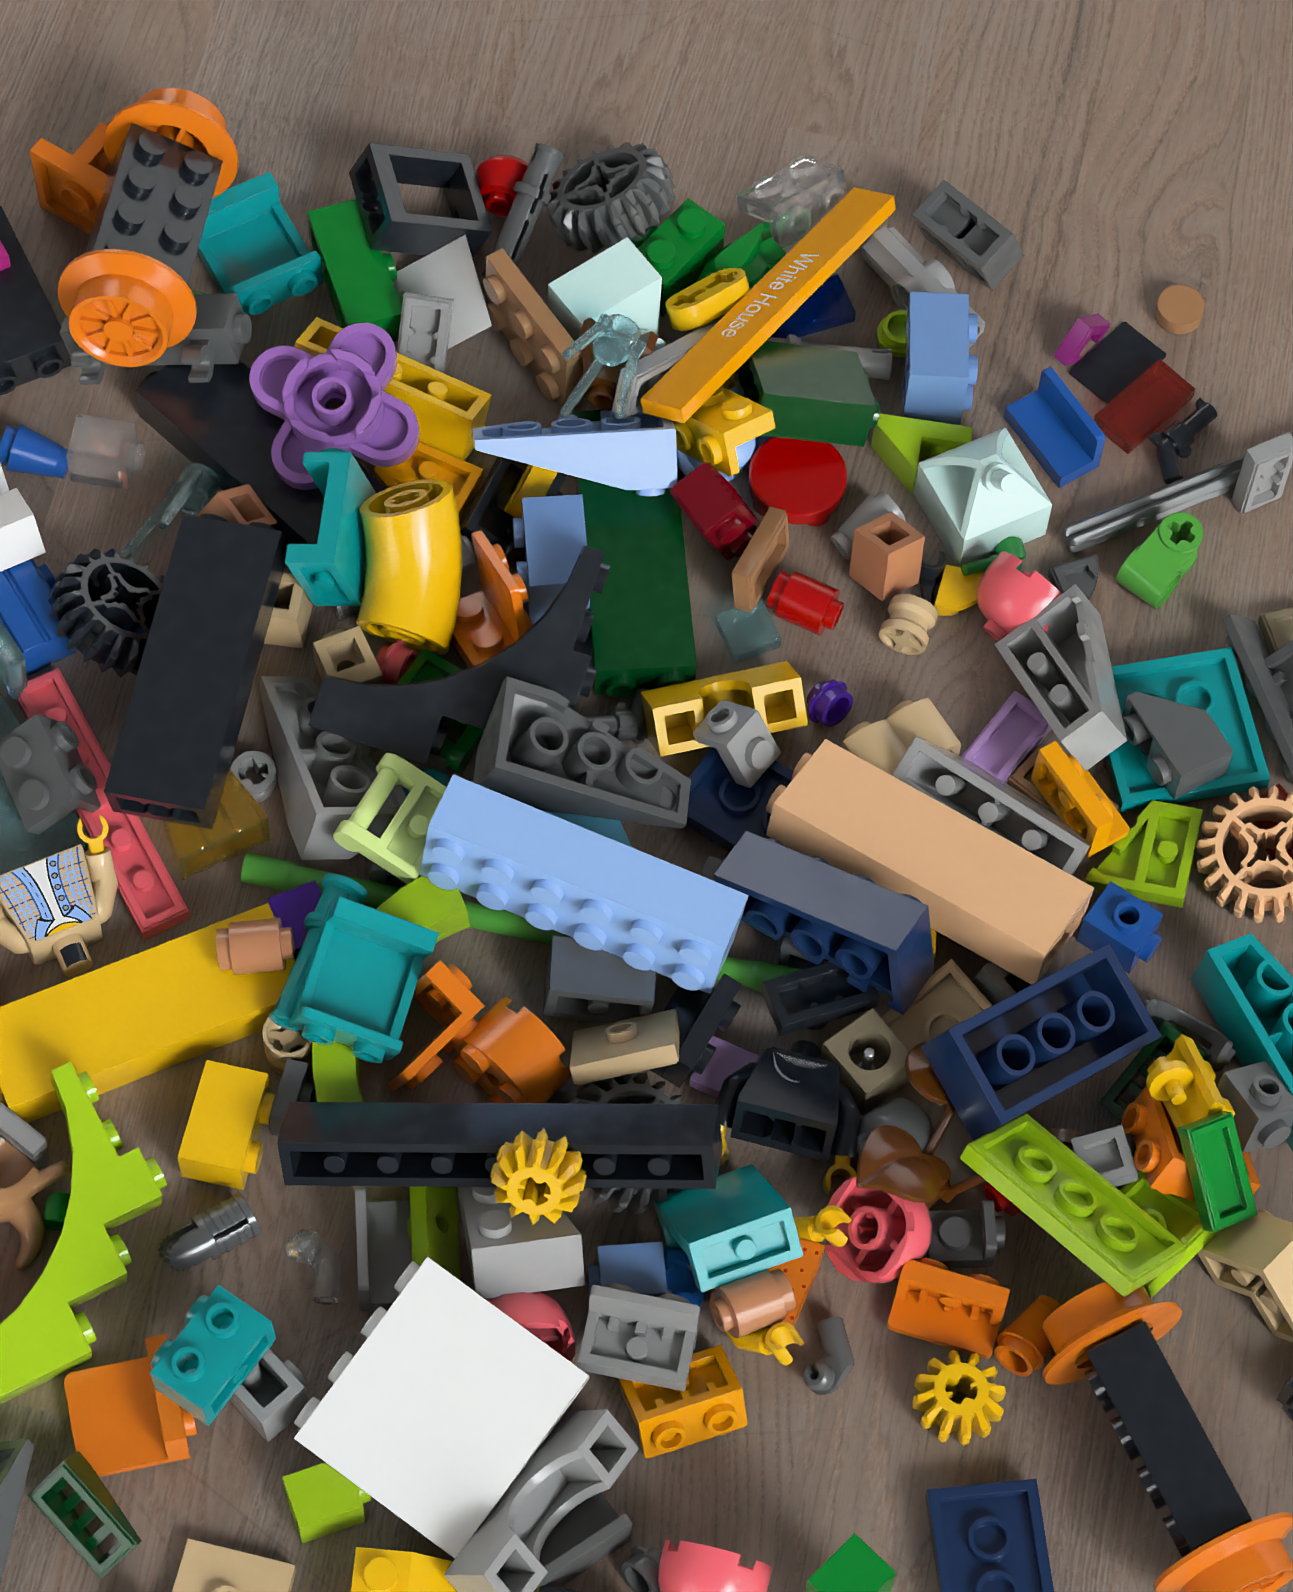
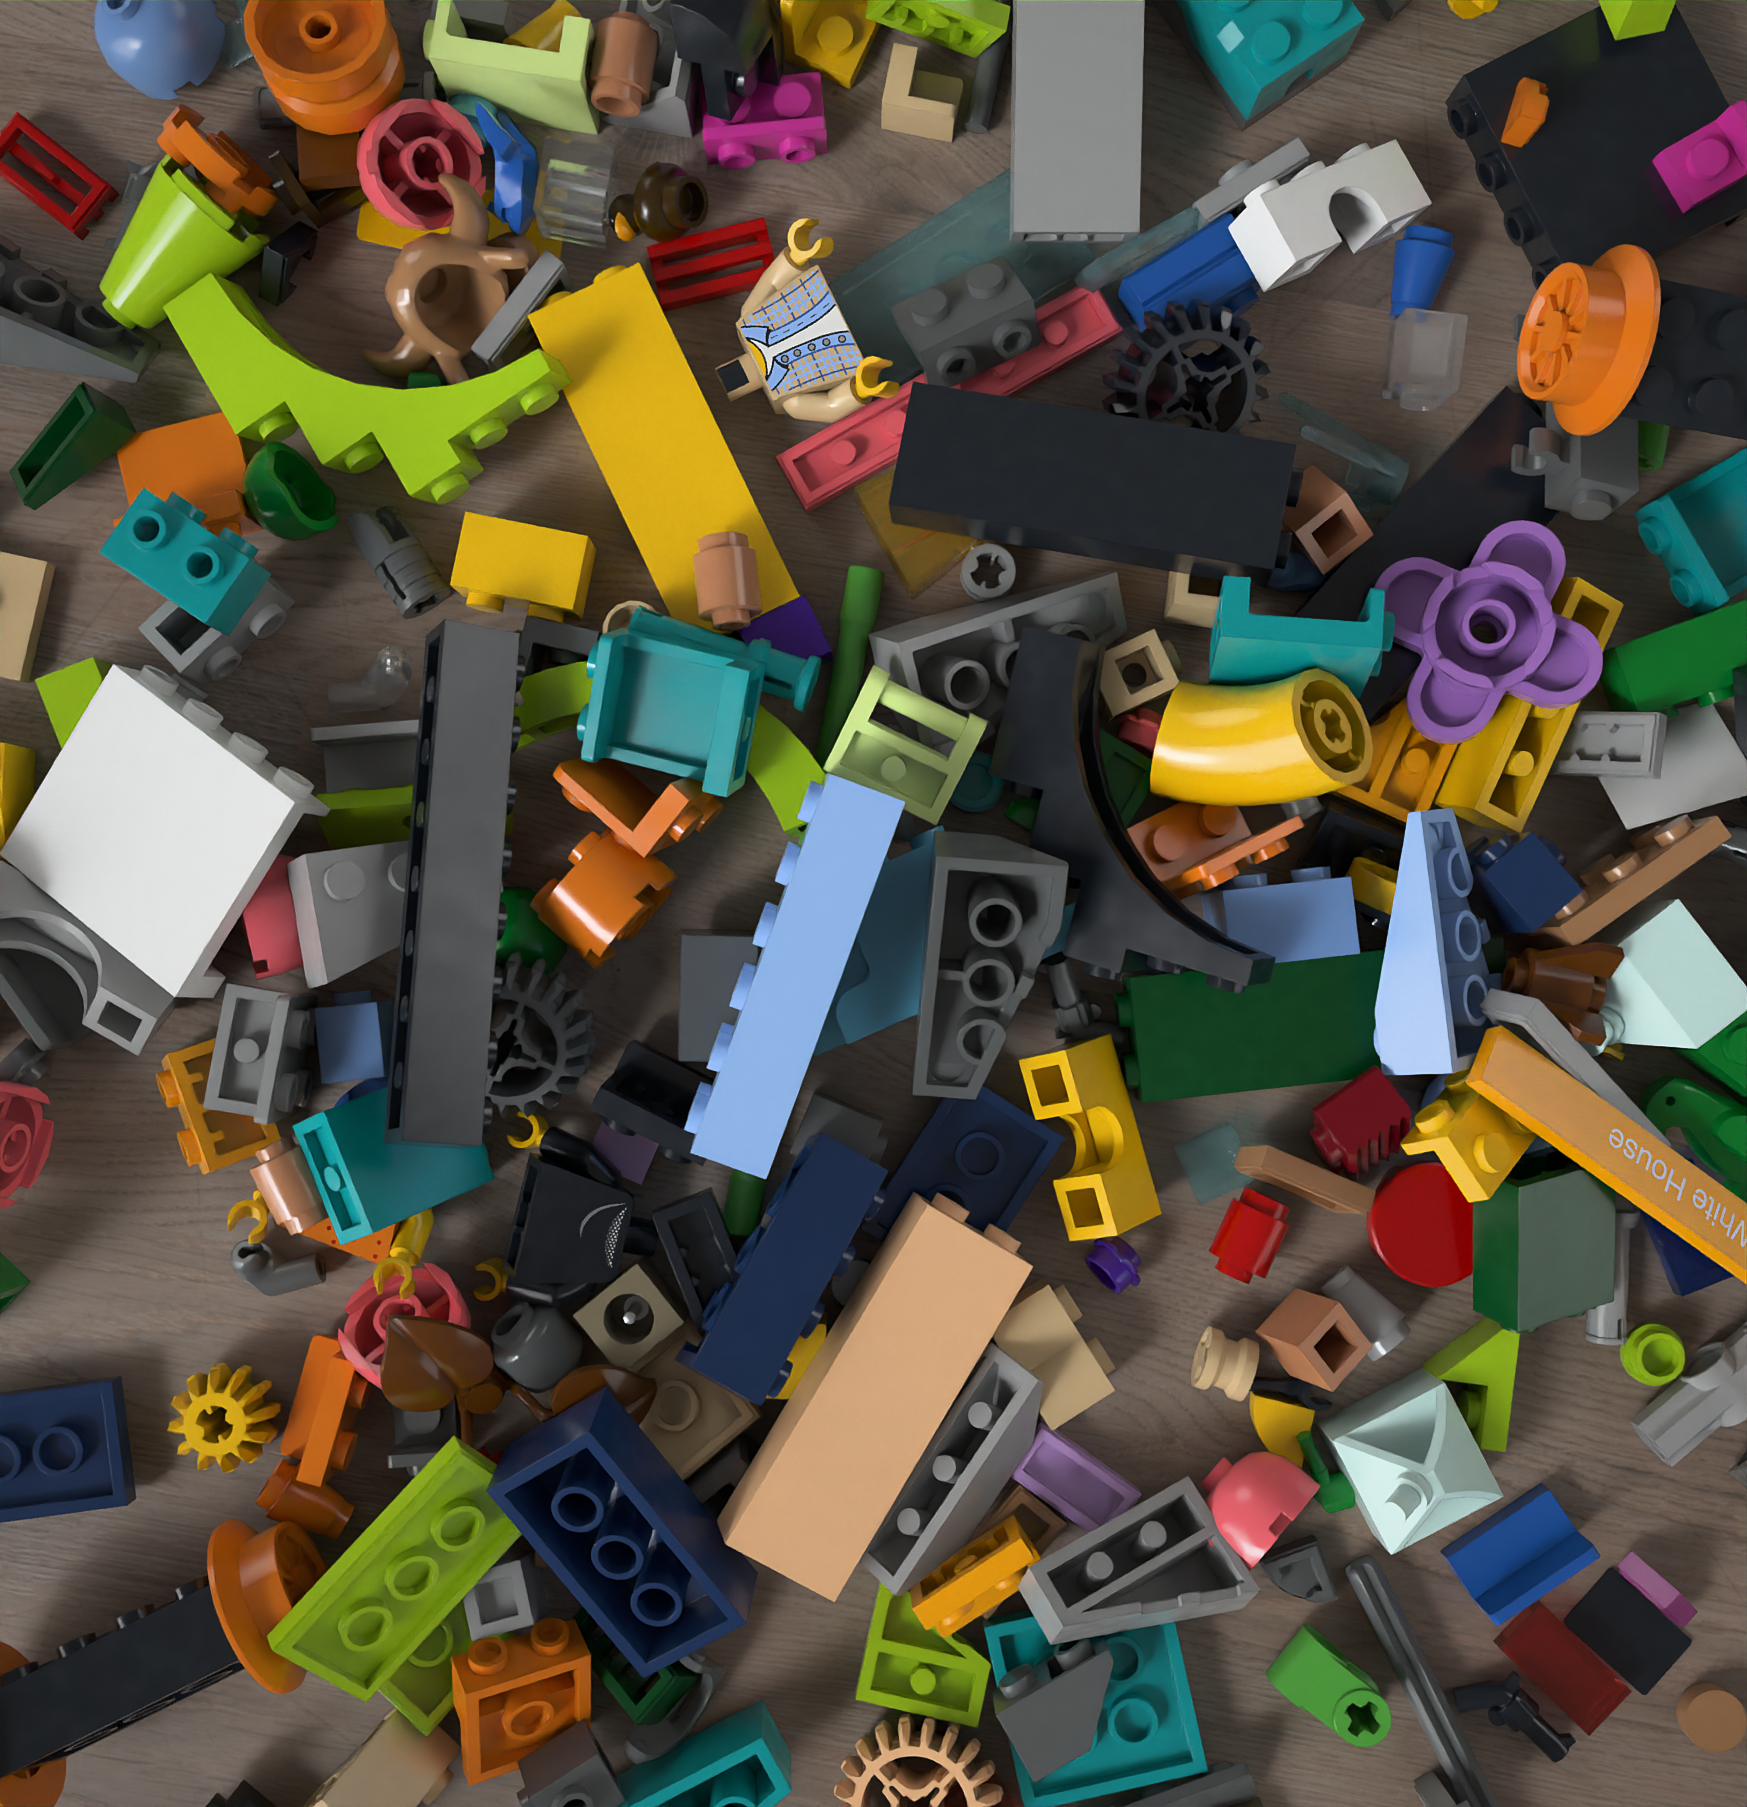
camera: 90 degrees right, 25 degrees up
(148, 1316) = (288, 494): none -> green helmet
(529, 390) = (1518, 881): none -> dark blue brick
(538, 1176) = (377, 929): yellow gear -> none
(614, 342) = (1579, 989): clear light blue plant -> none
(625, 1047) = (616, 1028): tan plate -> none
(707, 299) = (1676, 1108): yellow beam -> none
(740, 740) = (1035, 1155): light grey bracket -> none
(938, 362) = (1606, 1410): medium blue brick -> none
(1124, 924) = (815, 1629): blue brick -> none
(1185, 1084) = (573, 1709): yellow hips -> none
(1217, 1171) = (459, 1744): green tile -> none

